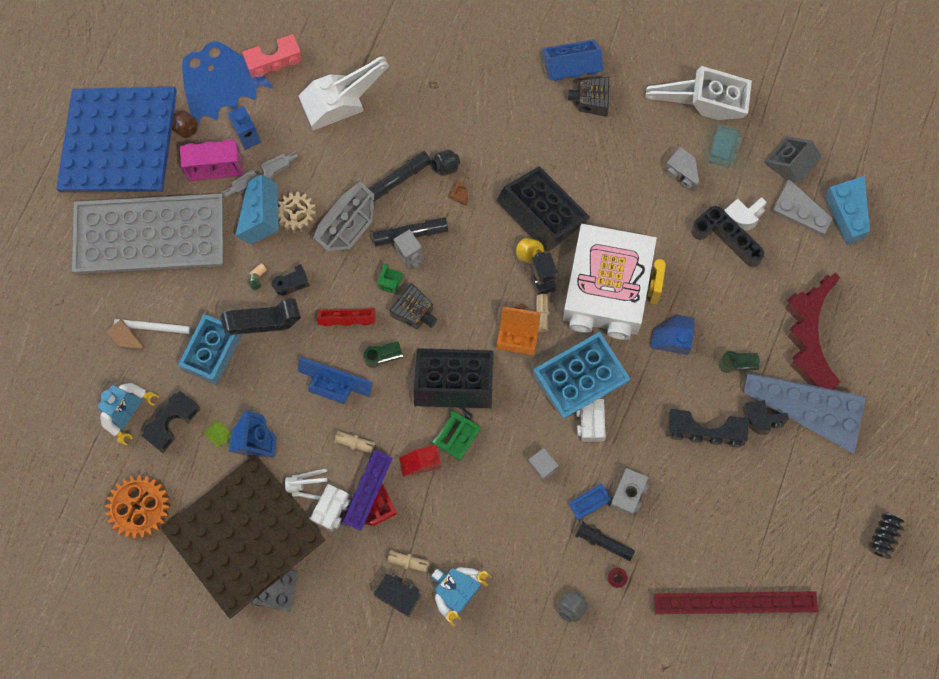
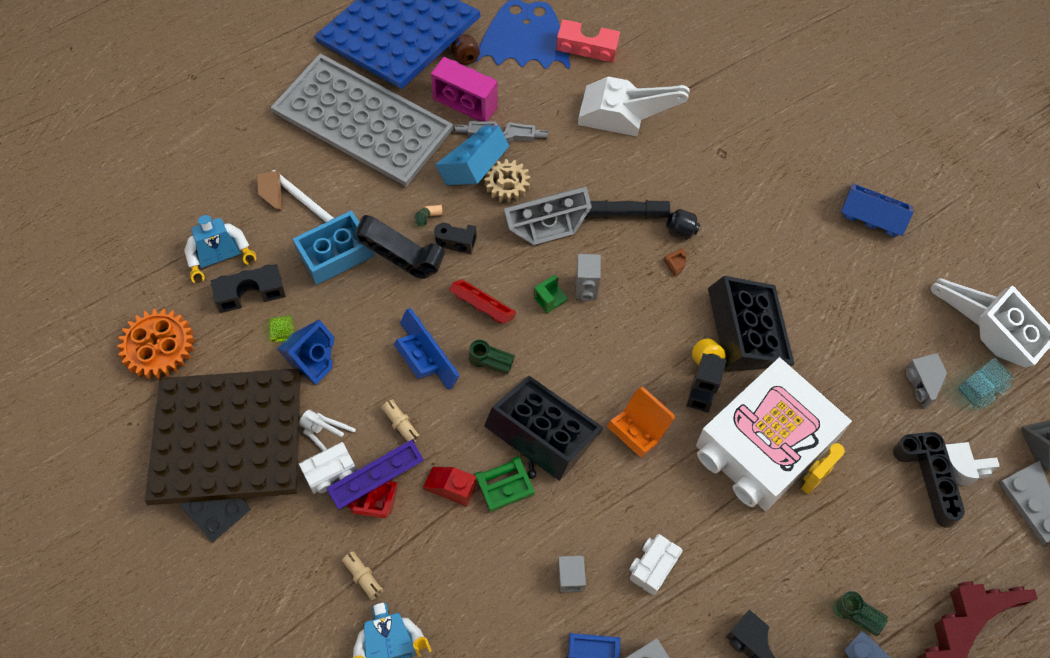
camera: 30 degrees right, 10 degrees down
(242, 124) = (516, 73): blue torso -> none
(398, 595) = (325, 601): black brick -> none
(413, 309) = (552, 335): torso -> none
(428, 228) = (608, 266): black piece -> none
(542, 308) = (679, 423): tan axle -> none
(580, 375) = (675, 508): dark azure slope -> none
(592, 96) = (874, 253): torso -> none
(674, 335) = (805, 537): blue slope -> none

